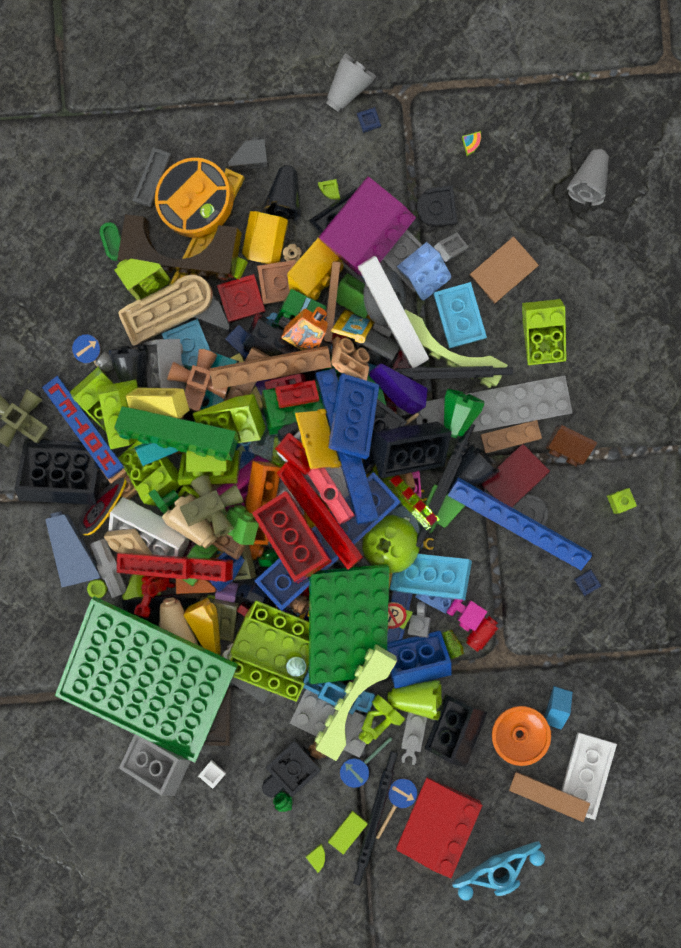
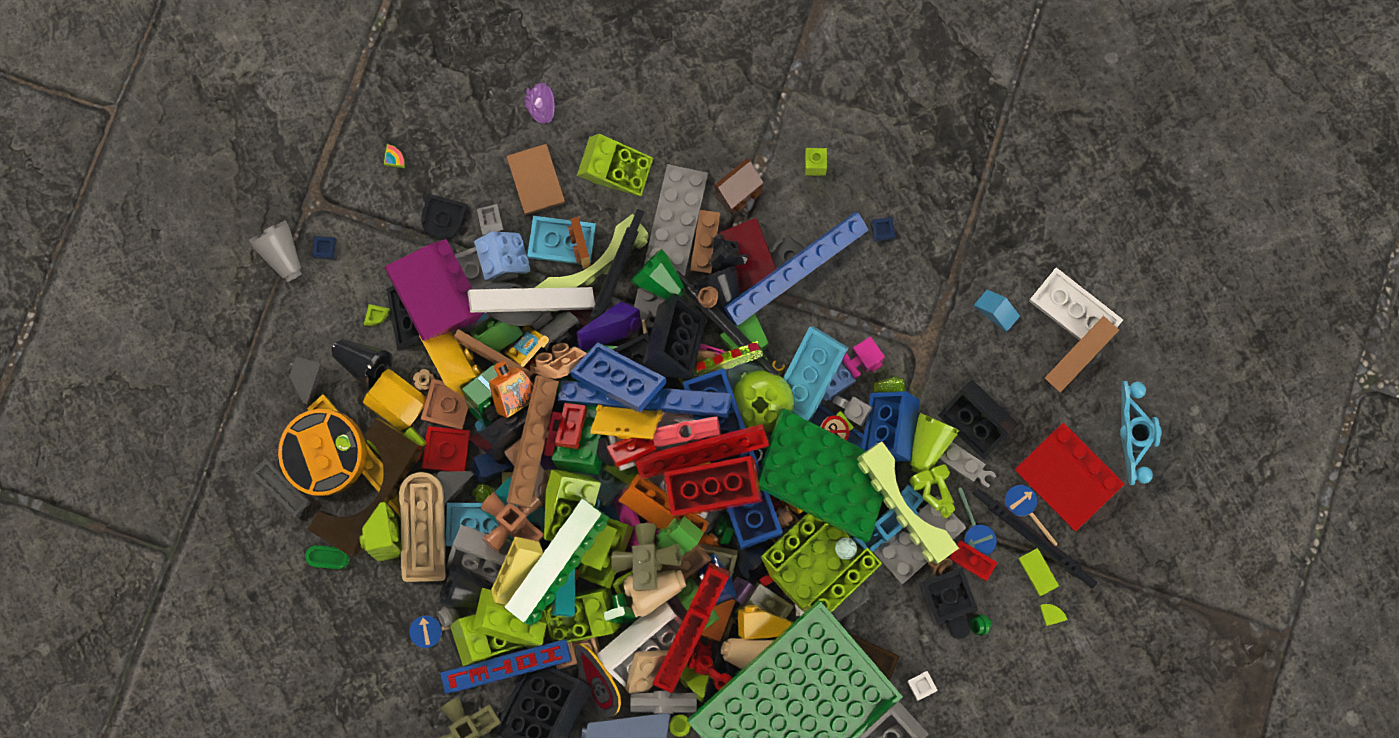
camera: 65 degrees left, 10 degrees down
(218, 345) = (482, 492): none -> clear neon green plate
(333, 775) = (973, 561): none -> red plate
(460, 461) = (708, 297): none -> medium nougat plate
(466, 327) = (577, 237): none -> dark orange plate
(484, 632) = (891, 350): red head -> none
(506, 459) = (726, 253): none -> black rock
(526, 748) = (1012, 342): orange dish -> none
(572, 244) = (540, 103): none -> medium lavender hat
(591, 179) = (484, 58): light grey cone -> none

